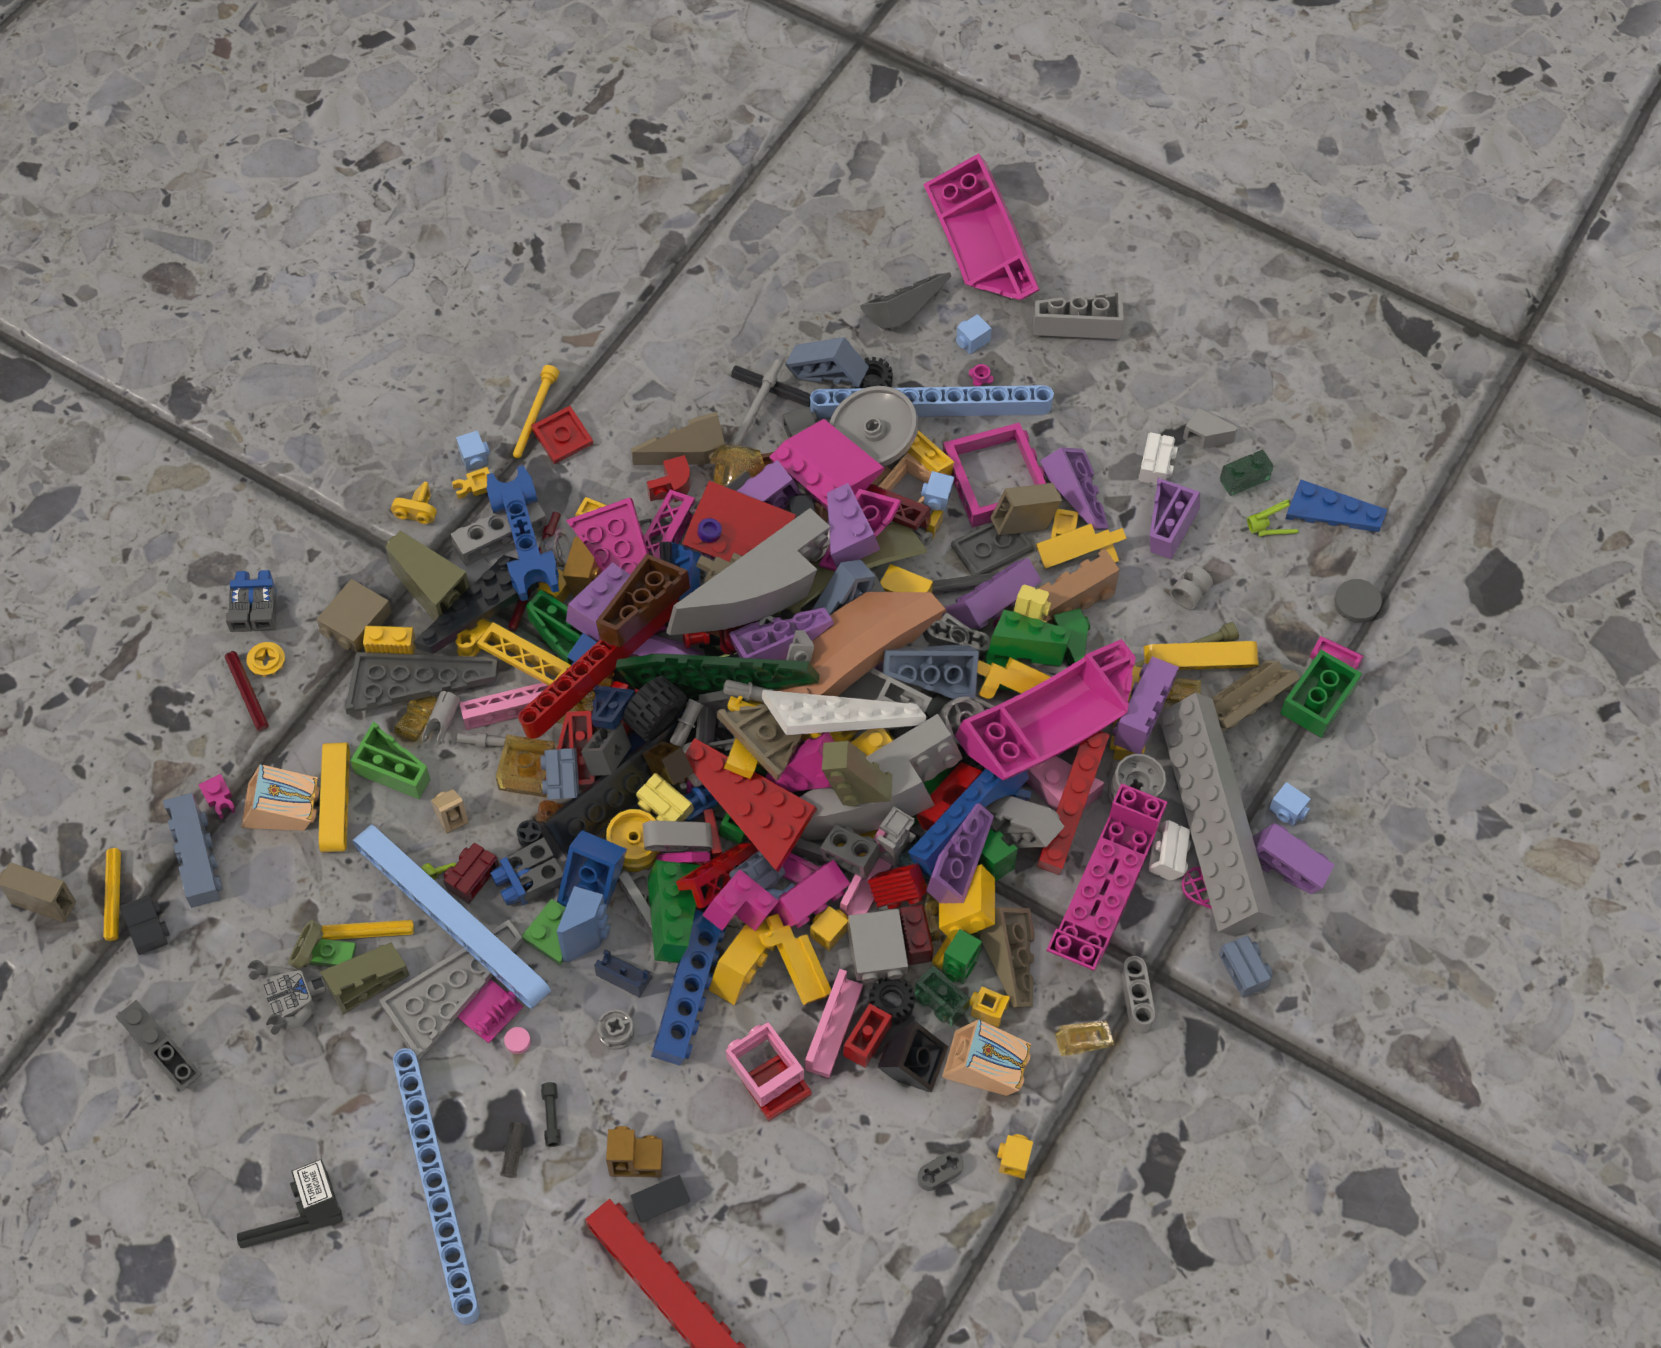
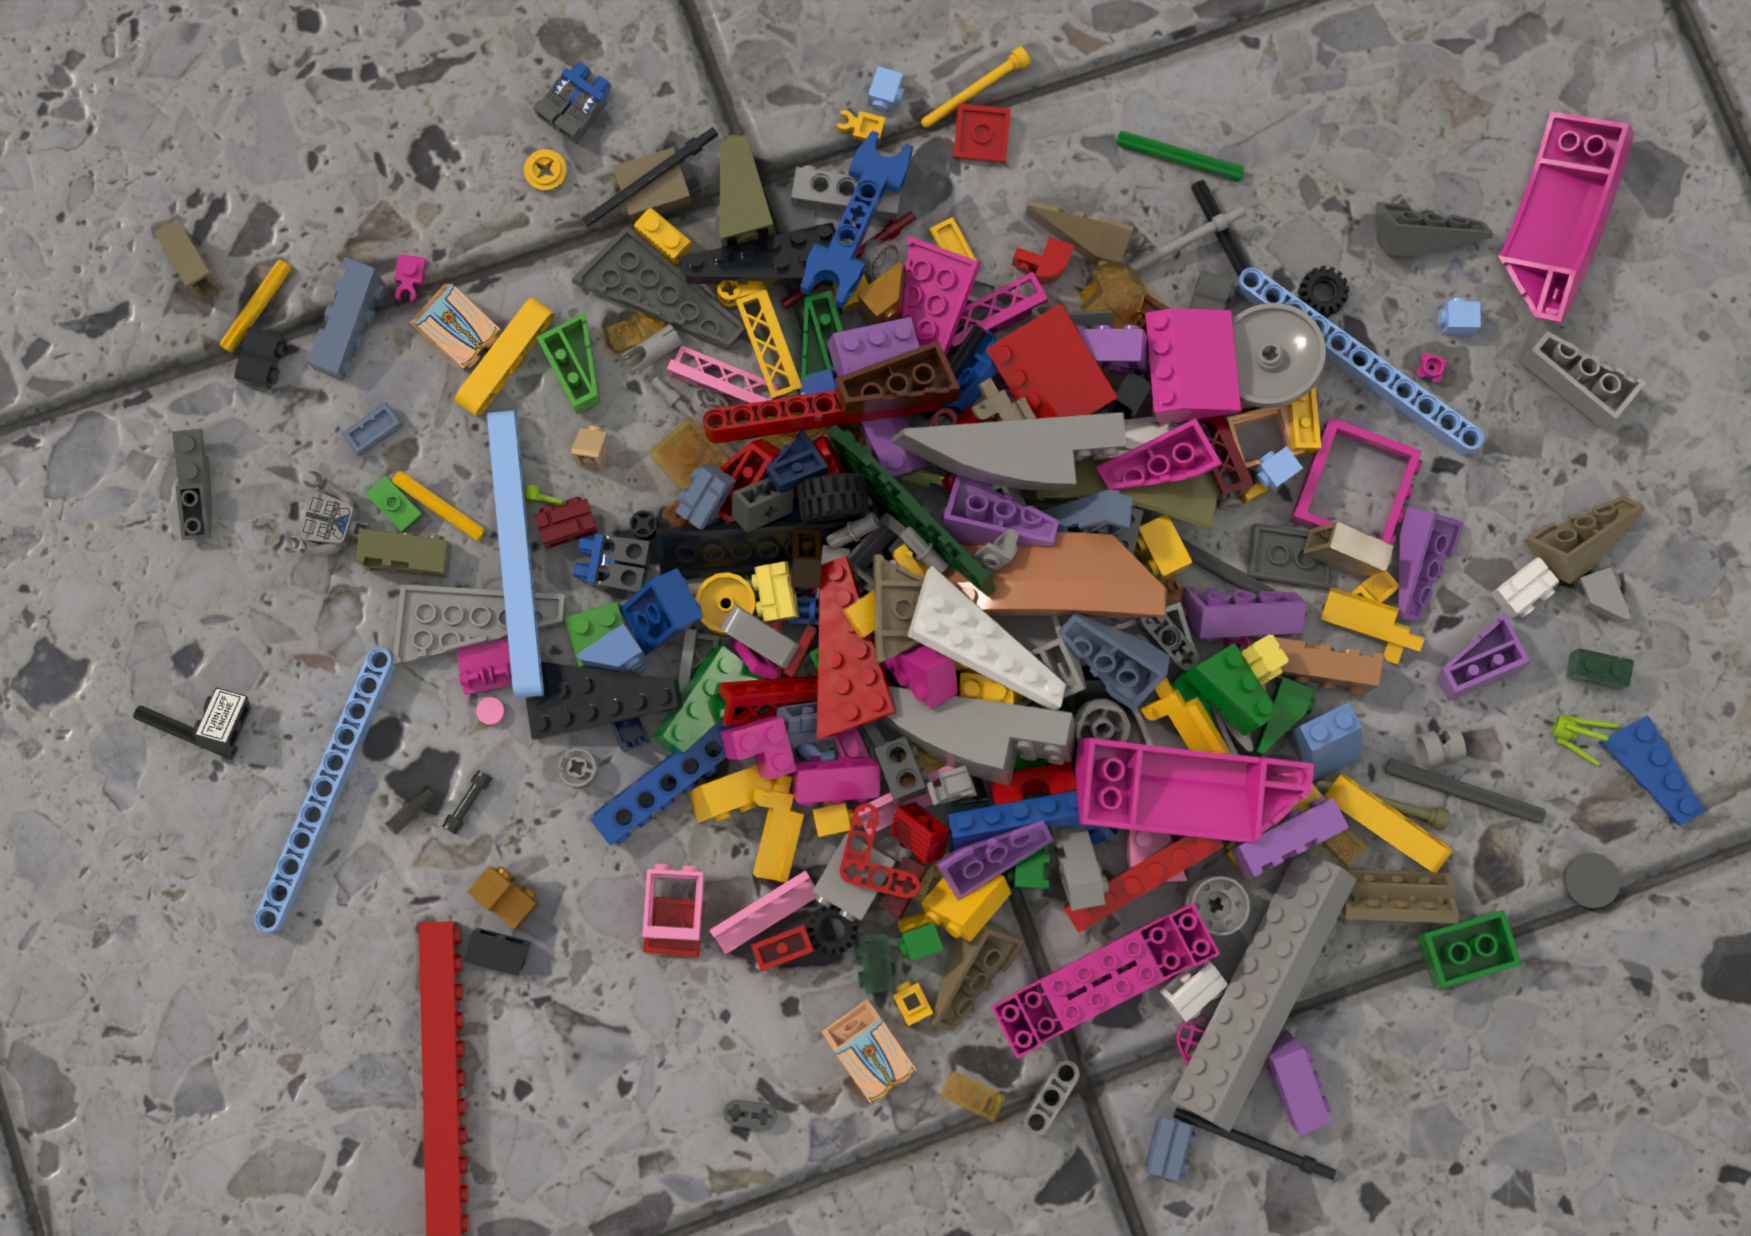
camera: 35 degrees right, 20 degrees up
(246, 691) = (506, 190): dark red axle -> none
(271, 913) = (372, 429): none -> sand blue plate
(309, 937) = (368, 489): olive plate -> none
(365, 569) = (691, 147): none -> black bar
(413, 510) = (790, 121): yellow plate -> none
(422, 493) = (801, 105): yellow slope -> none
(509, 725) = (702, 401): none -> light grey wheel
(591, 964) = (591, 698): none -> black wing
(707, 362) = (1180, 155): none -> green axle
(709, 530) = (1017, 357): dark purple tile -> none
(827, 360) = (1290, 244): sand blue wedge -> none
(849, 529) = (1148, 456): medium lavender wedge -> none
(853, 776) = (940, 720): olive wedge -> none
(876, 924) = (861, 859): none -> red beam
(914, 1057) = (808, 998): black slope -> none
(1015, 1155) = (822, 1154): yellow brick -> none
(1117, 621) = (1329, 741): none -> medium blue slope
(1167, 407) = (1580, 542): none -> dark tan wedge
(1230, 605) = (1465, 791): none -> dark grey axle
(1290, 804) = (1343, 1031): light blue brick -> none
(1341, 908) = (1305, 1163): none -> black bar
(1342, 653) = (1521, 919): dark pink tile -> none

